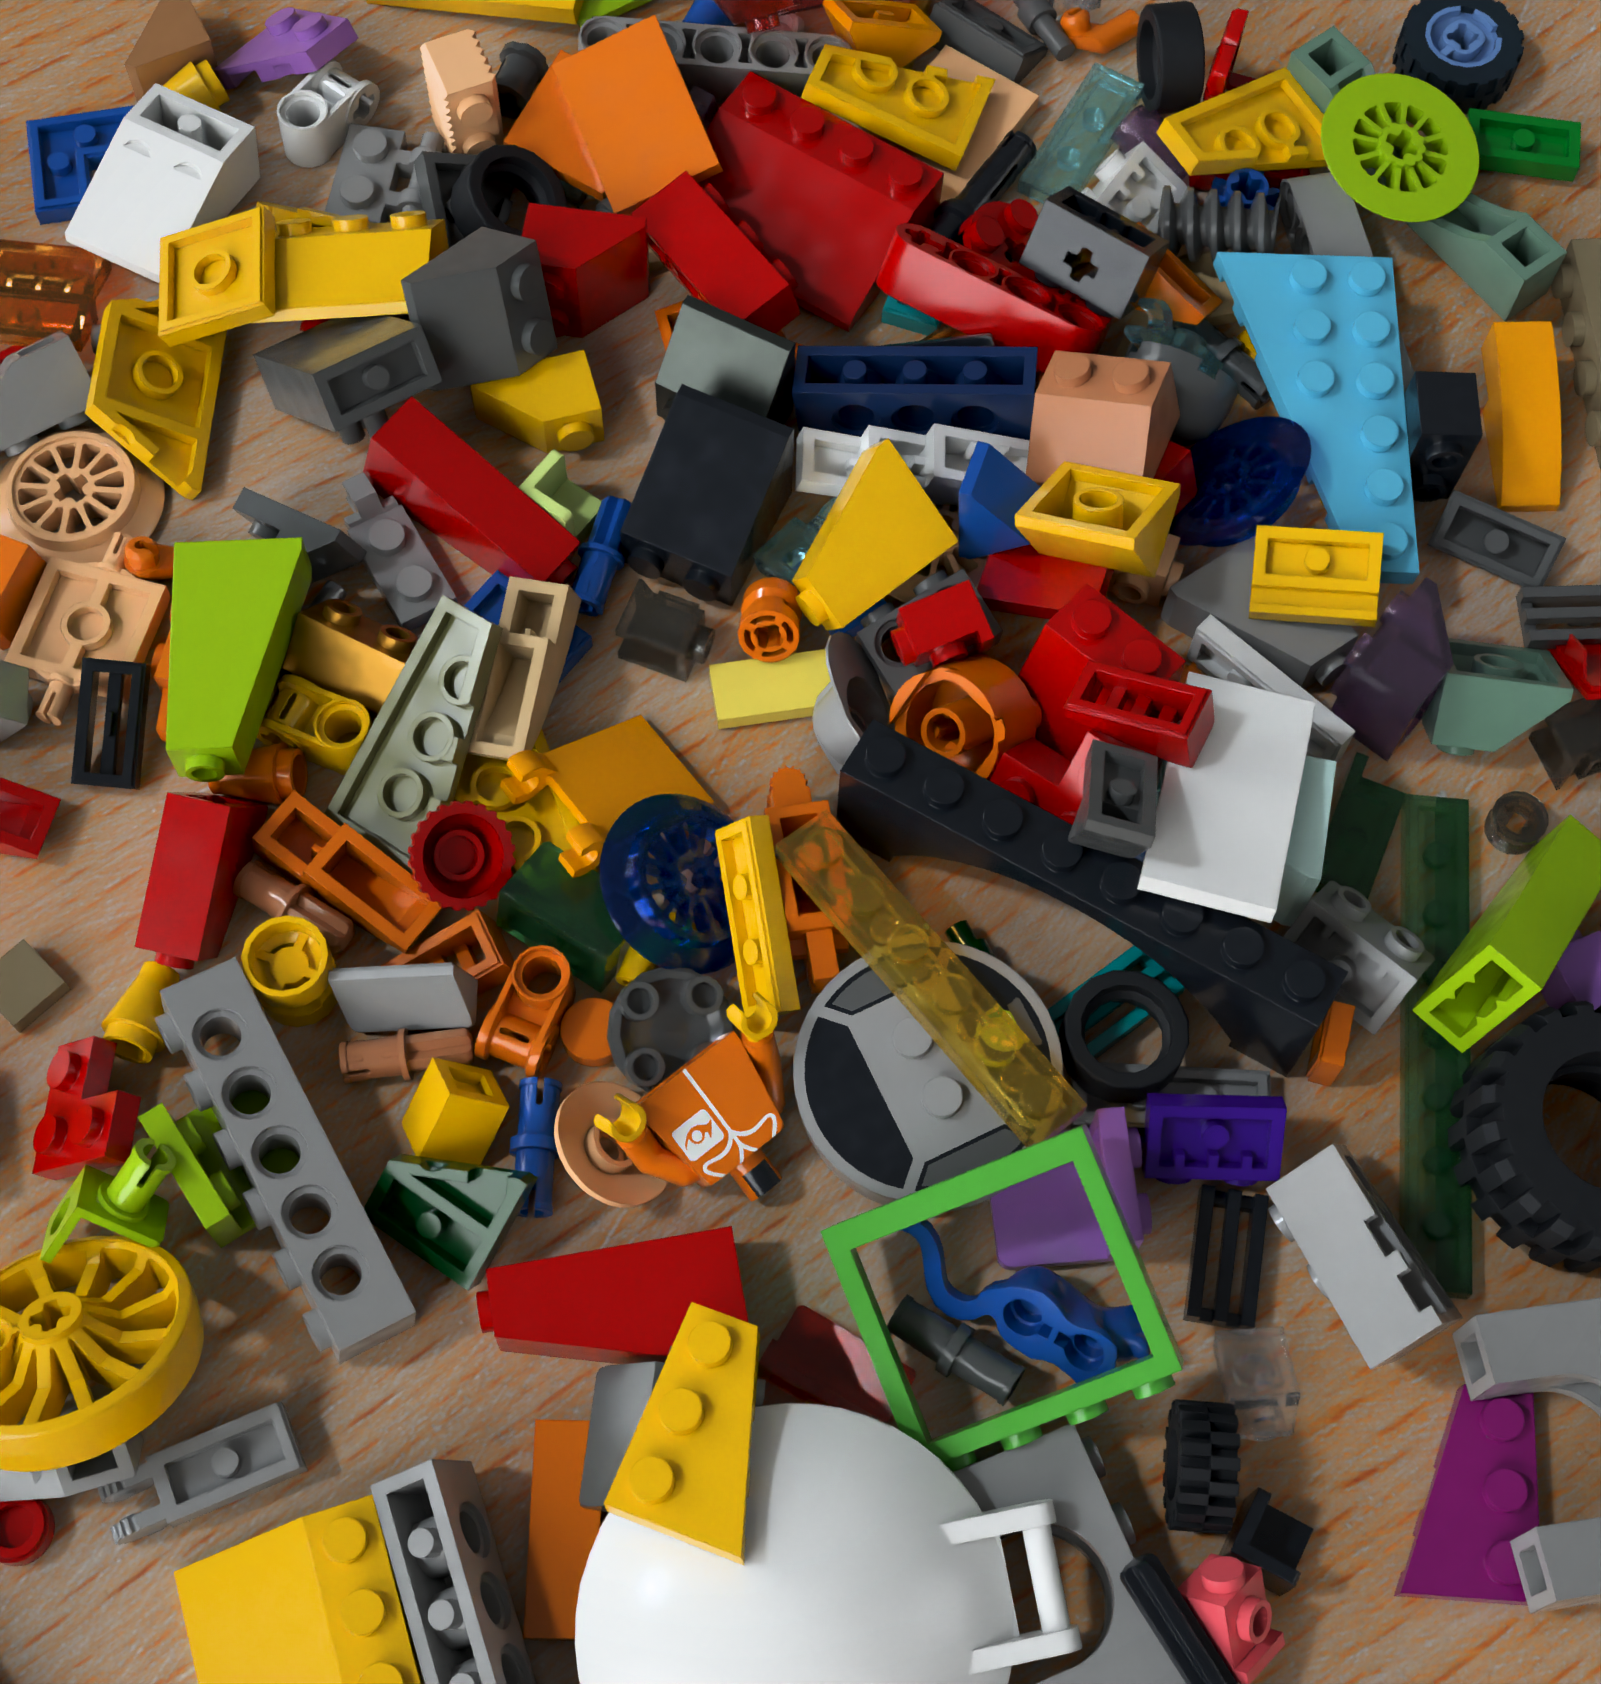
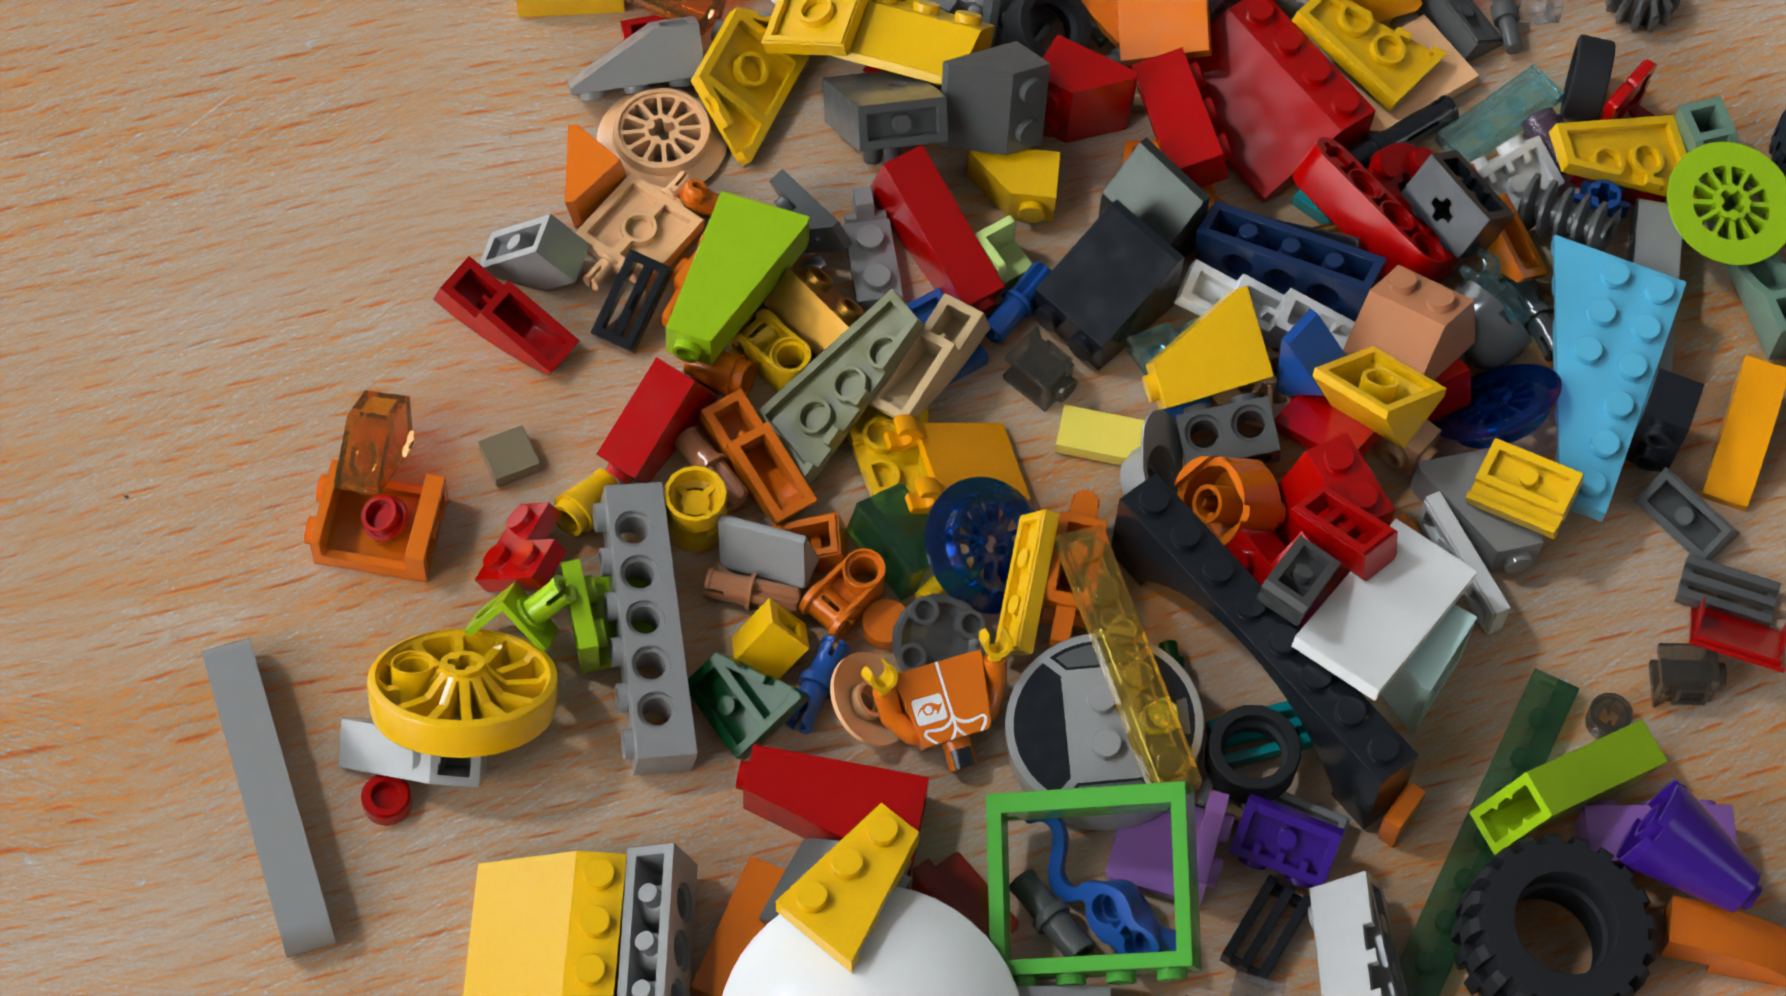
camera: 20 degrees right, 5 degrees down
(210, 1471) = (521, 809): light grey hinge -> none
(461, 855) = (839, 470): red hat -> none
(770, 620) = (1119, 387): orange wheel -> none
(941, 627) = (1234, 430): red brick -> none
(1099, 37) = (1544, 45): orange arm -> none
(1359, 829) = (1482, 683): clear green panel -> none
(1379, 957) = (1448, 762): light grey bracket -> none
(1395, 672) = (1555, 578): clear purple slope -> none
(1493, 696) = (1624, 617): sand green slope -> none

